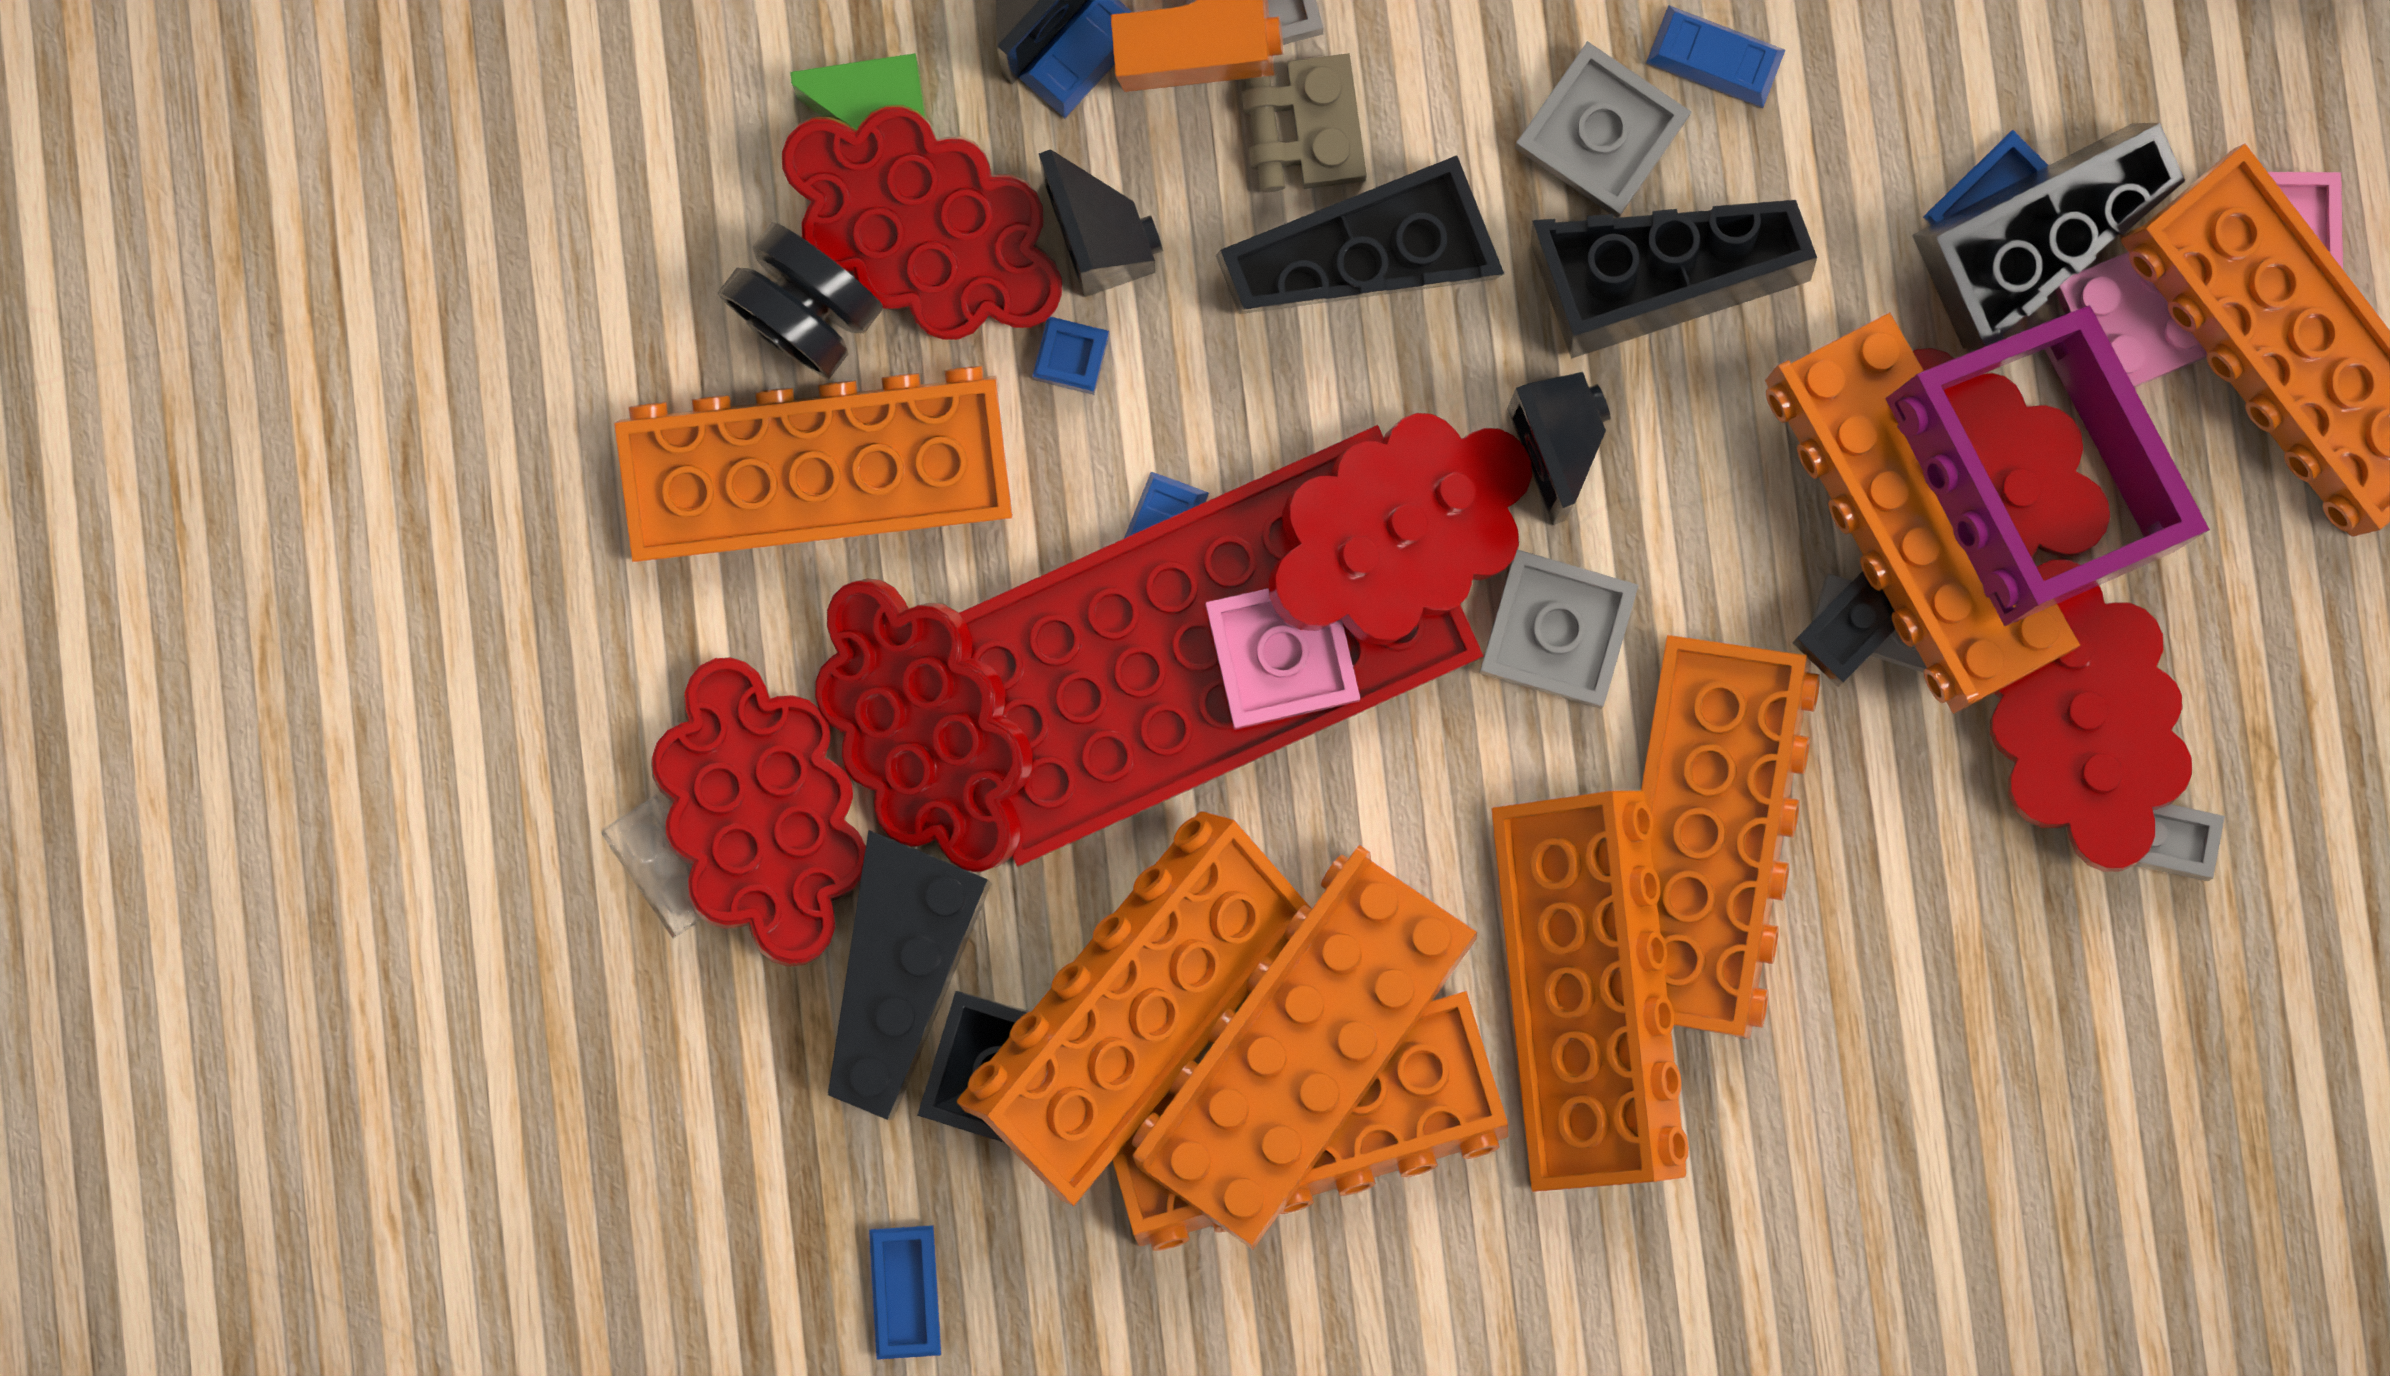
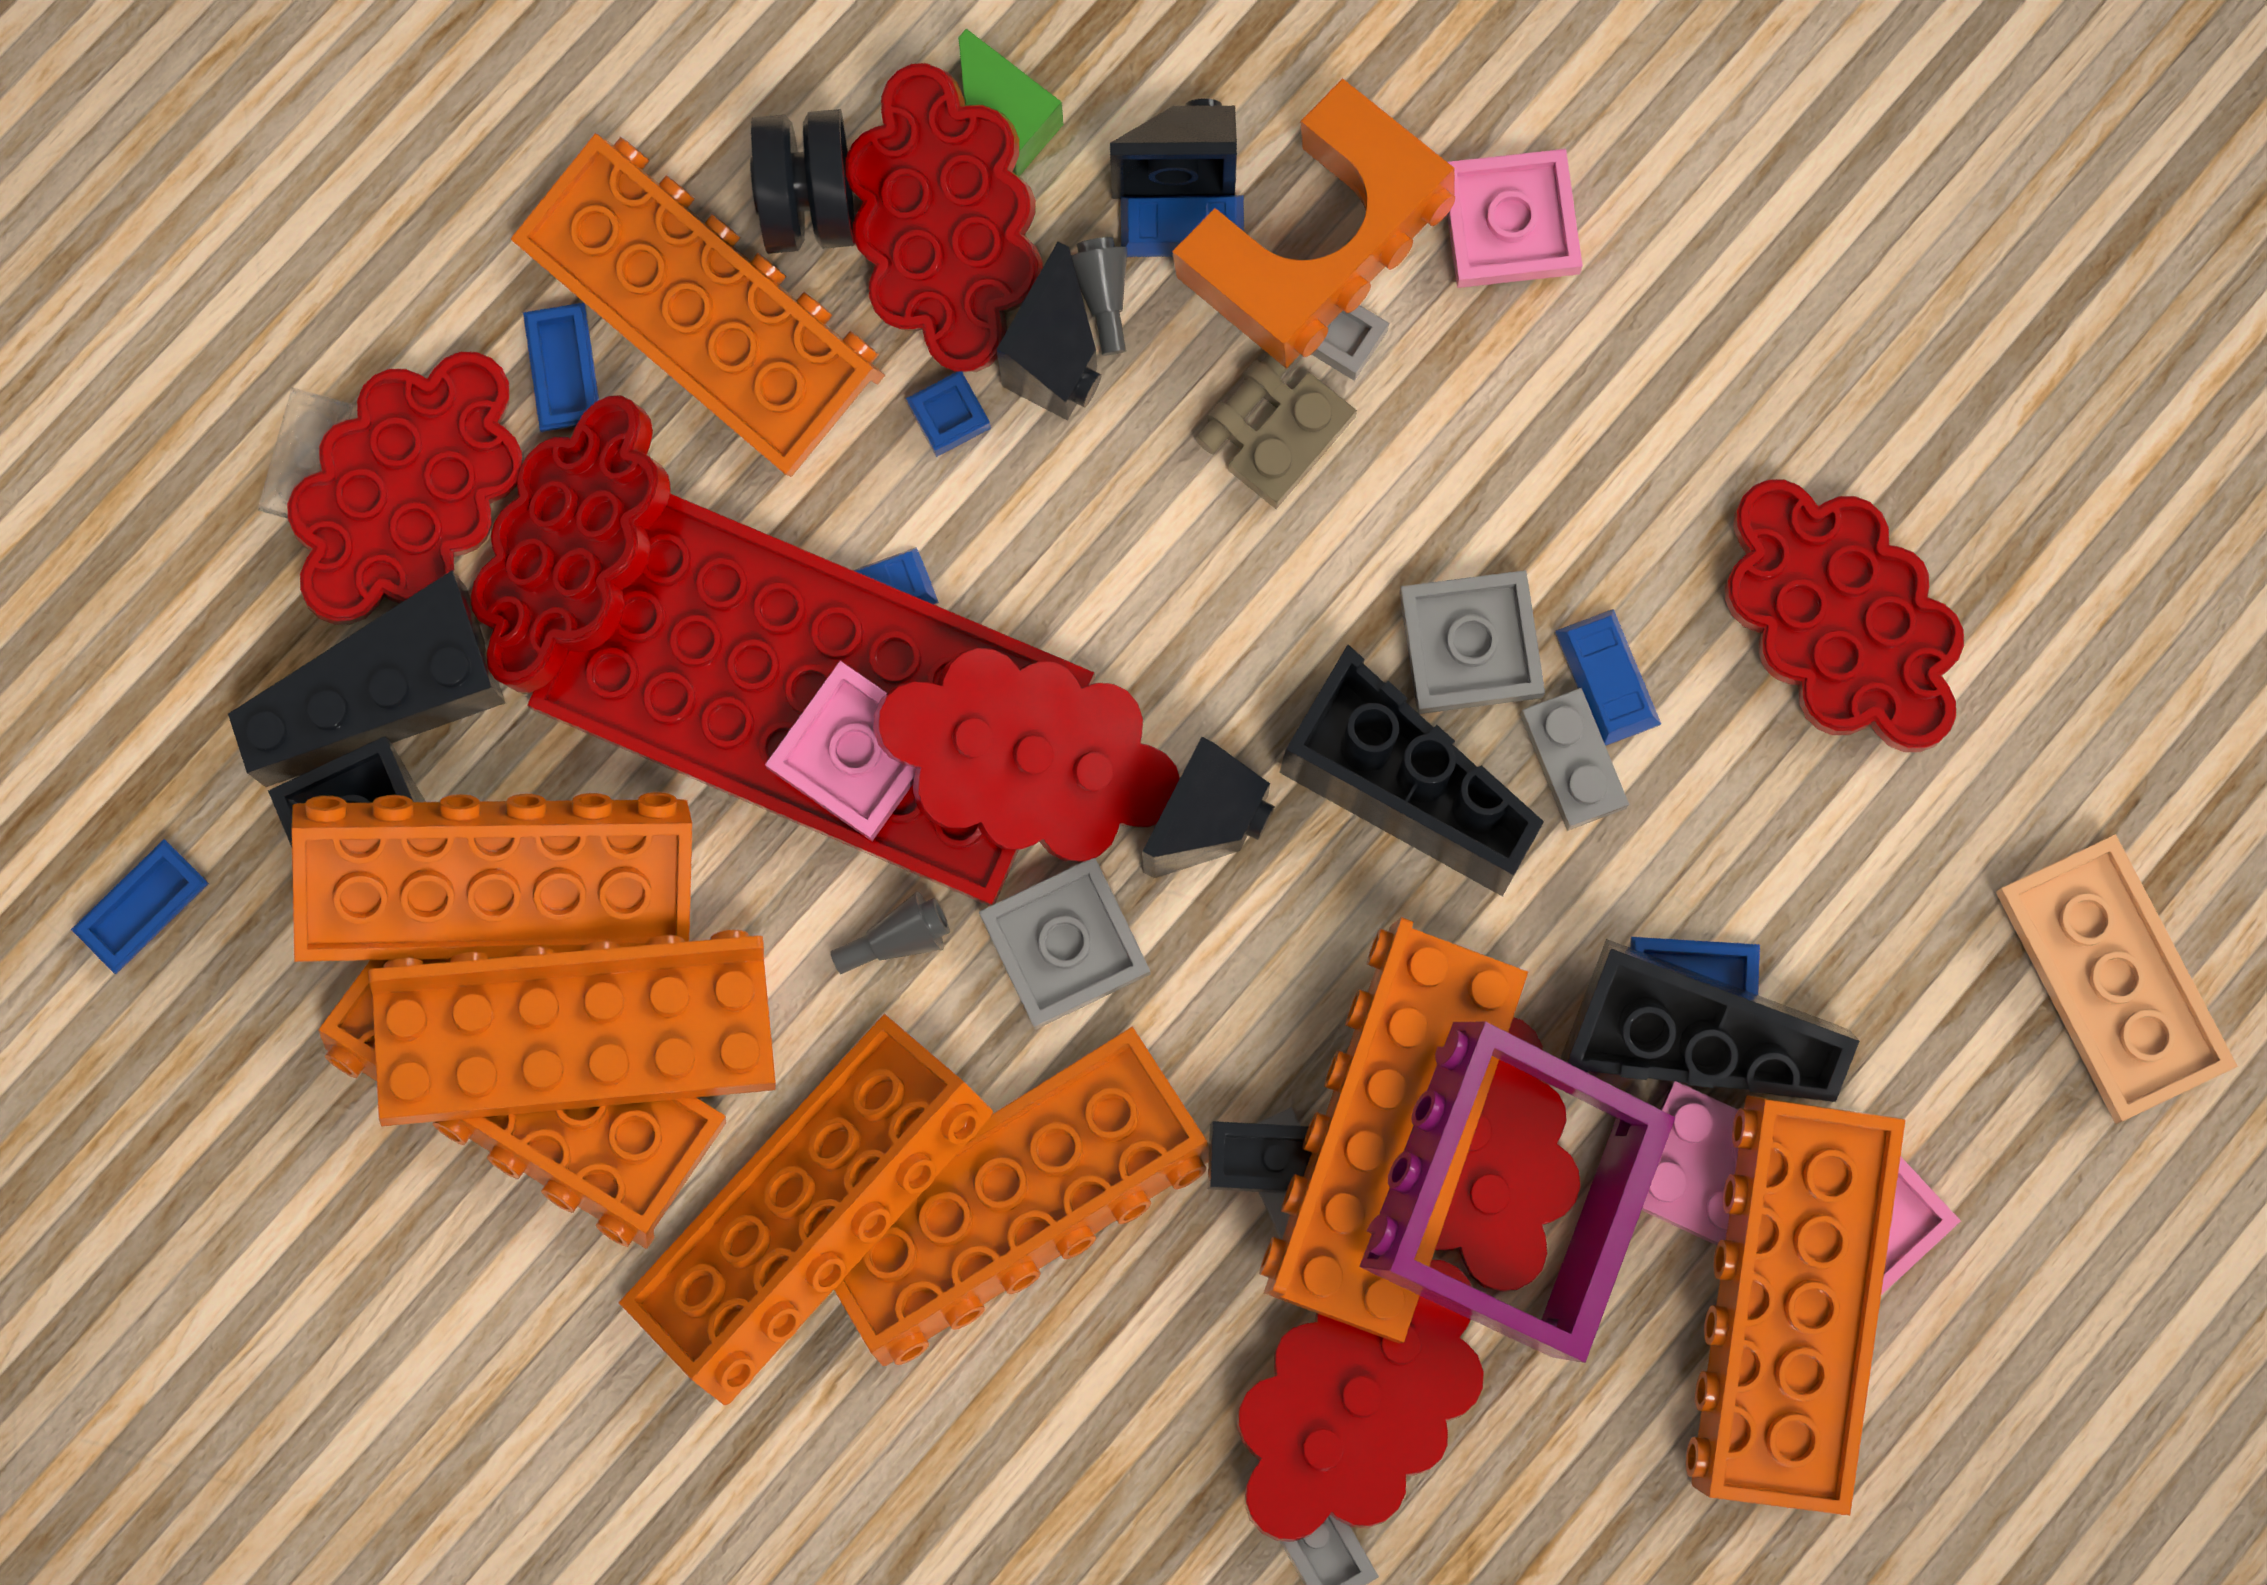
camera: 50 degrees right, 5 degrees down
(767, 611) = (561, 364): none -> blue tile
(1078, 145) = (1101, 279): none -> dark grey cone
(1377, 243) = (1226, 548): black wedge -> none
(1443, 739) = (906, 931): none -> dark grey cone
(1755, 136) = (1574, 759): none -> light grey plate

